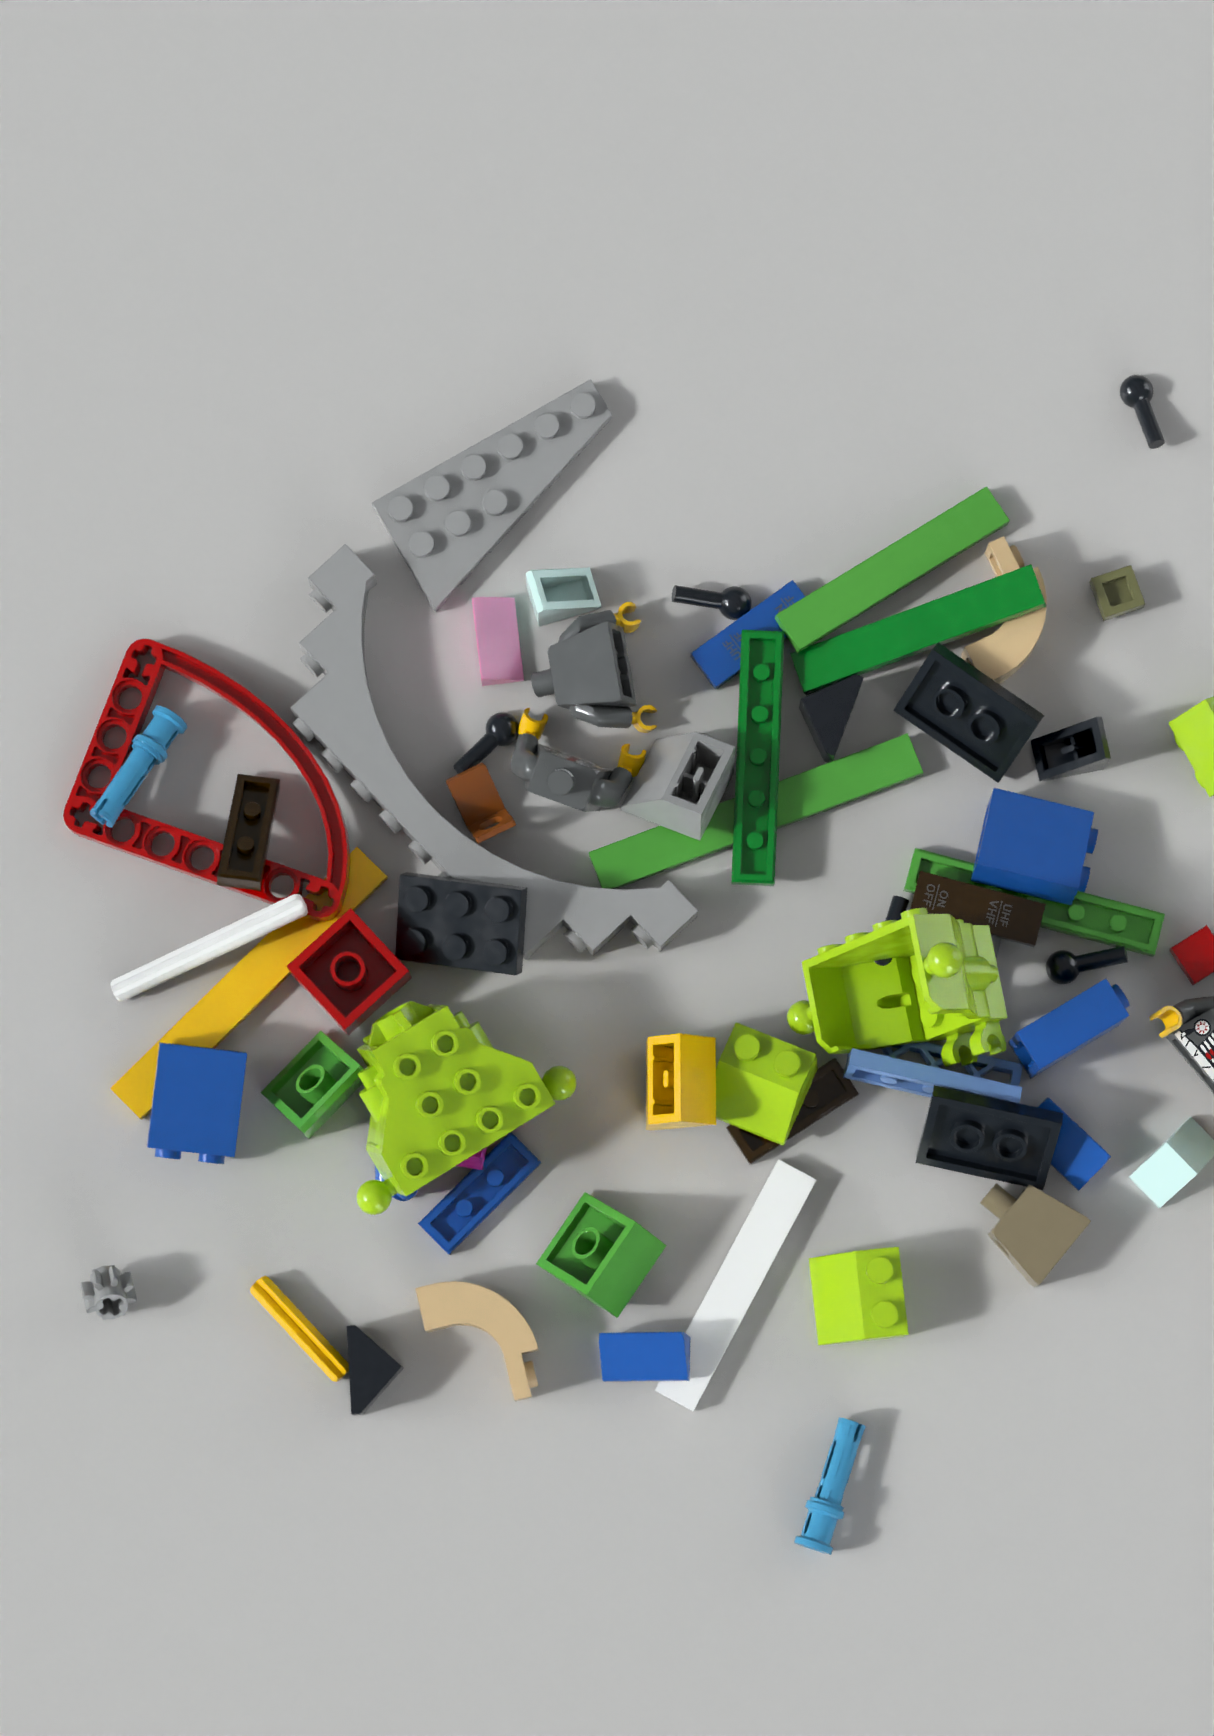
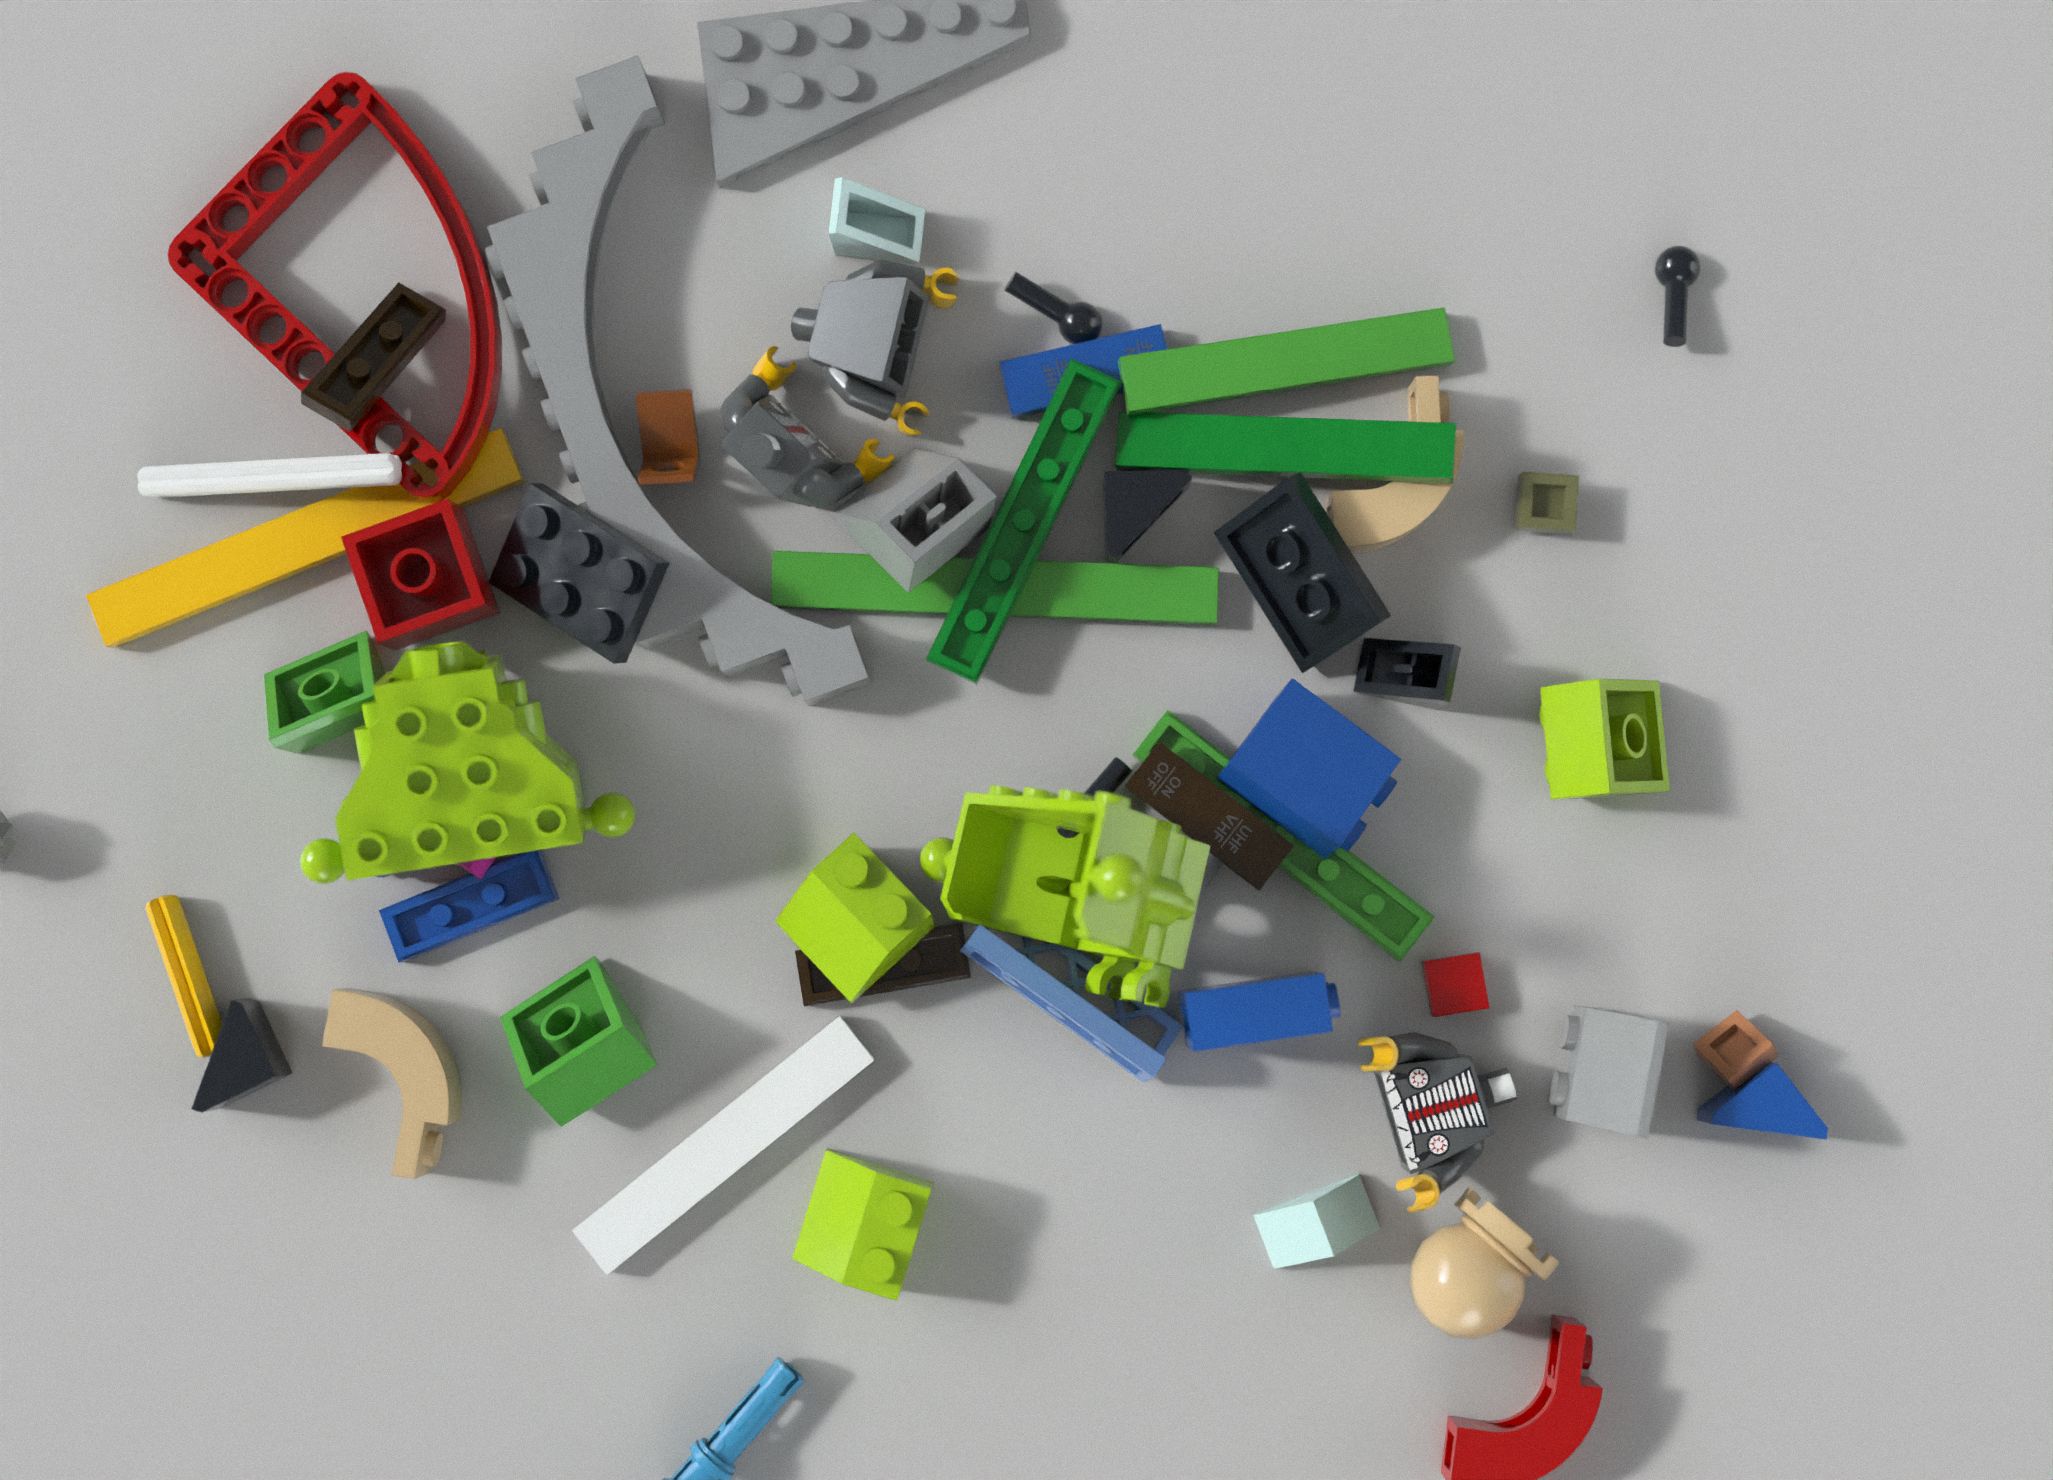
camera: 25 degrees right, 5 degrees up
(147, 751) = (300, 209): dark azure pin -> none
(196, 1102) = (172, 653): blue brick -> none
(497, 640) = (775, 249): bright pink slope -> none
(500, 731) = (732, 361): black bar -> none
(645, 1356) = (575, 1187): blue slope -> none
(680, 1081) = (754, 877): yellow slope -> none
(989, 1137) = (1101, 1101): black plate -> none
(1032, 1229) = (1107, 1233): dark tan torso -> none
(1064, 966) = (1286, 928): black bar -> none
(1076, 1153) = (1189, 1143): blue slope -> none

